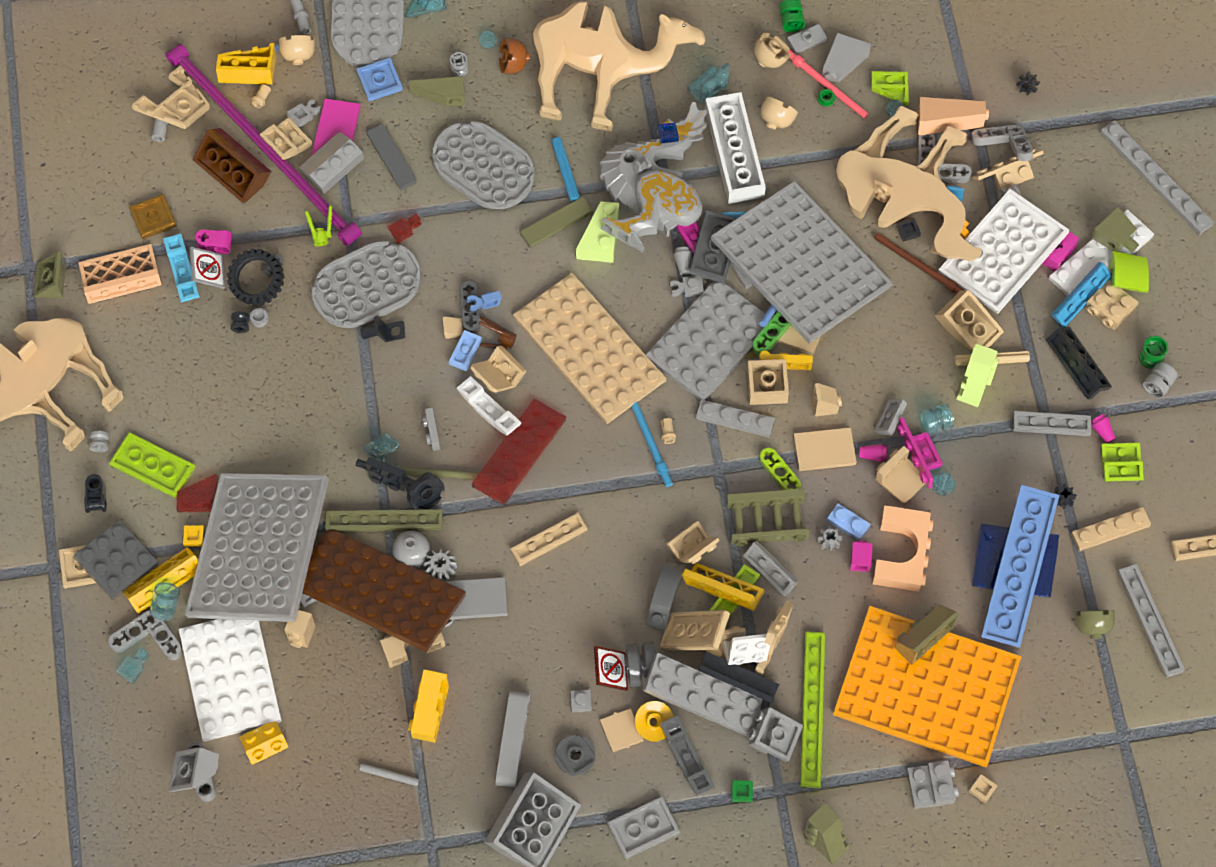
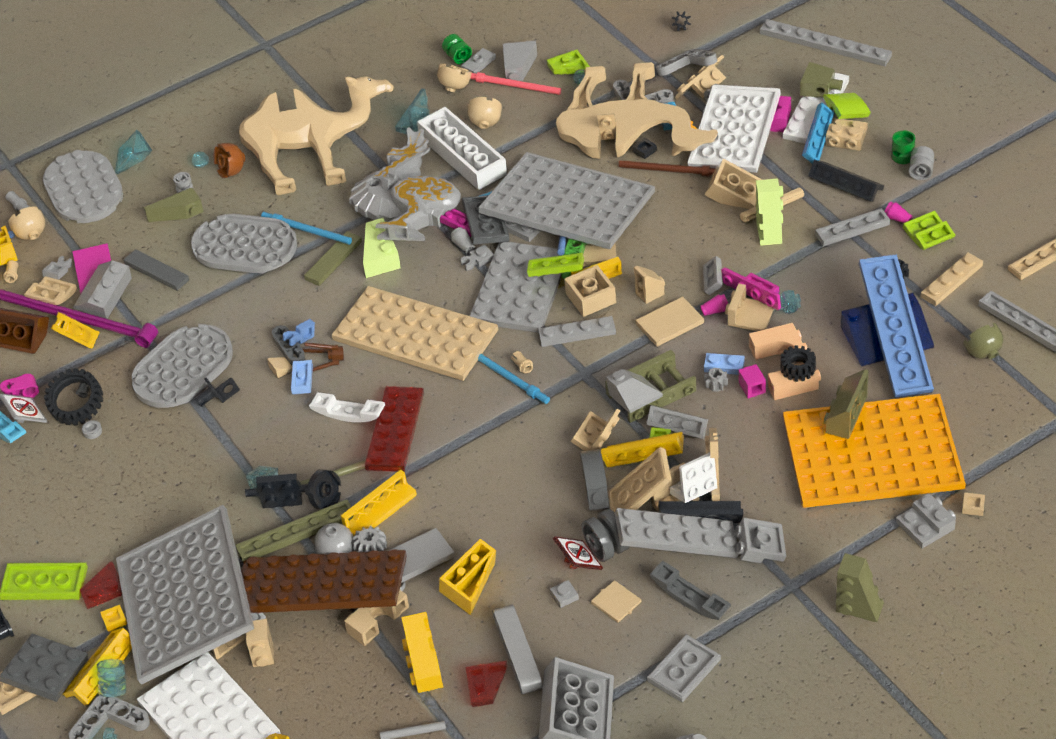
camera: 20 degrees left, 20 degrees down
(240, 322) = (75, 437): black wheel -> none
(288, 196) = (75, 330): none -> yellow plate
(320, 236) = (119, 346): lime plant -> none
(379, 79) = (116, 220): medium blue plate -> none
(403, 229) = (195, 315): clear red plate -> none
(432, 436) = (306, 448): light grey plate -> none
(466, 529) = (379, 508): none -> yellow fence
(470, 758) = (485, 682): none -> clear red wing
(499, 371) = (344, 375): tan bracket -> none
(506, 646) = (468, 576): none -> yellow wedge
(546, 173) = (311, 229): none -> dark azure bar
(548, 539) = (460, 484): tan tile -> none
(565, 169) = (317, 217): dark azure axle -> none
(577, 744) = (584, 647): dark grey plate -> none
(649, 710) = (637, 570): yellow dish -> none
(668, 133) = (398, 152): clear blue plate -> none
(742, 791) = (758, 598): green plate -> none
(745, 519) = (631, 390): none -> light grey slope
(749, 339) = (555, 265): none -> lime plate
(767, 464) = (624, 345): lime beam -> none
(812, 710) = (782, 512): lime tile -> none
(826, 93) = (519, 91): green plate -> none
(907, 553) = (798, 355): none -> black tyre
(938, 418) = (753, 259): clear light blue wheel -> none
(939, 113) = (621, 64): light nougat slope -> none

